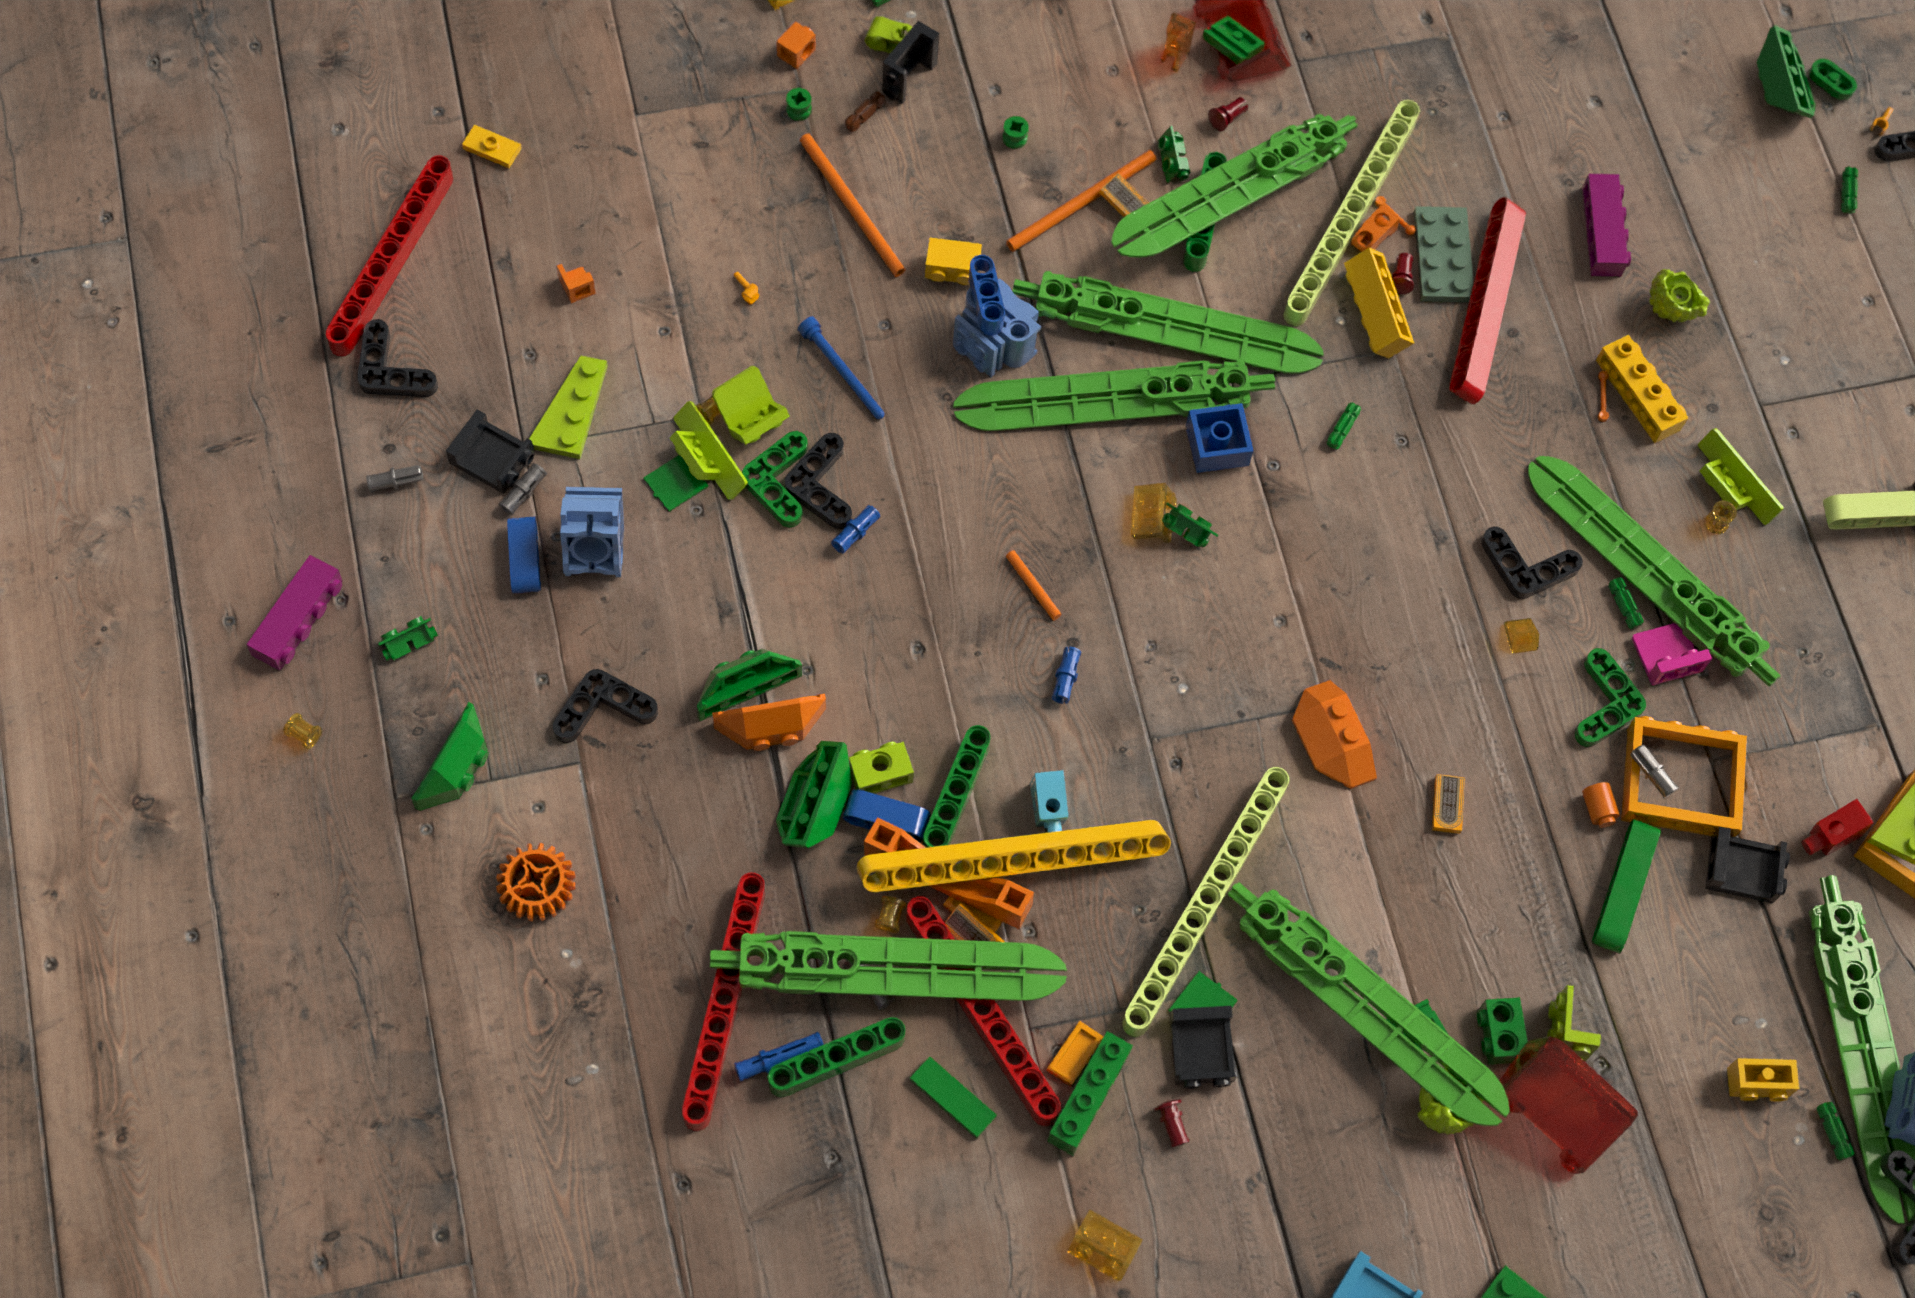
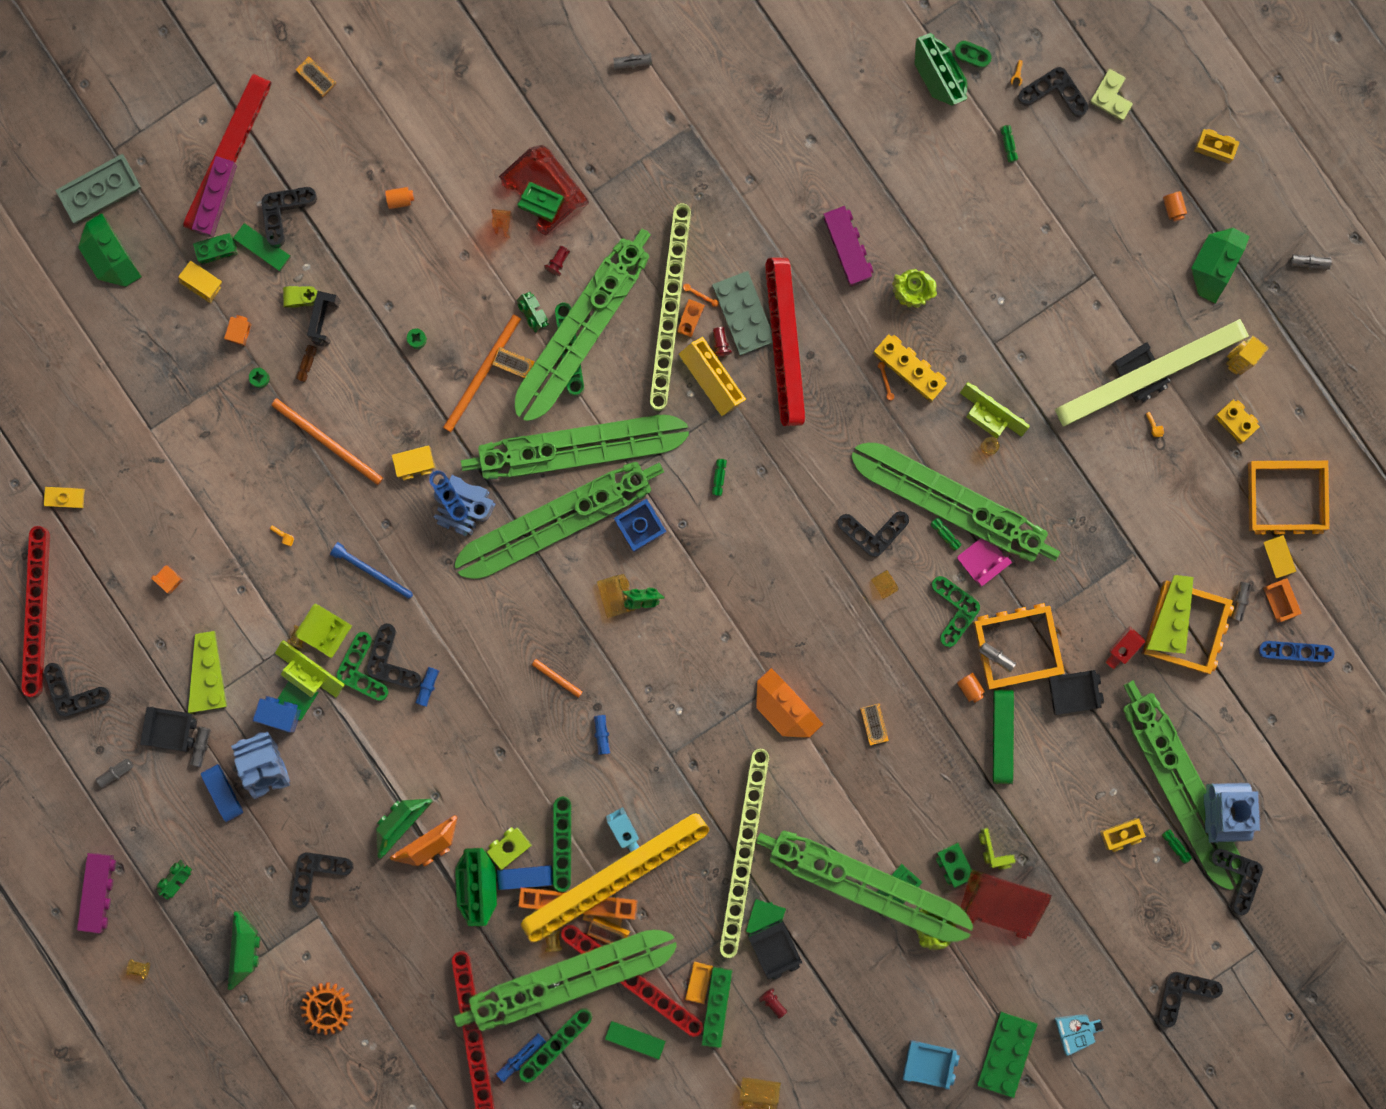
camera: 15 degrees left, 20 degrees up
(643, 481) = (277, 715): none -> blue brick

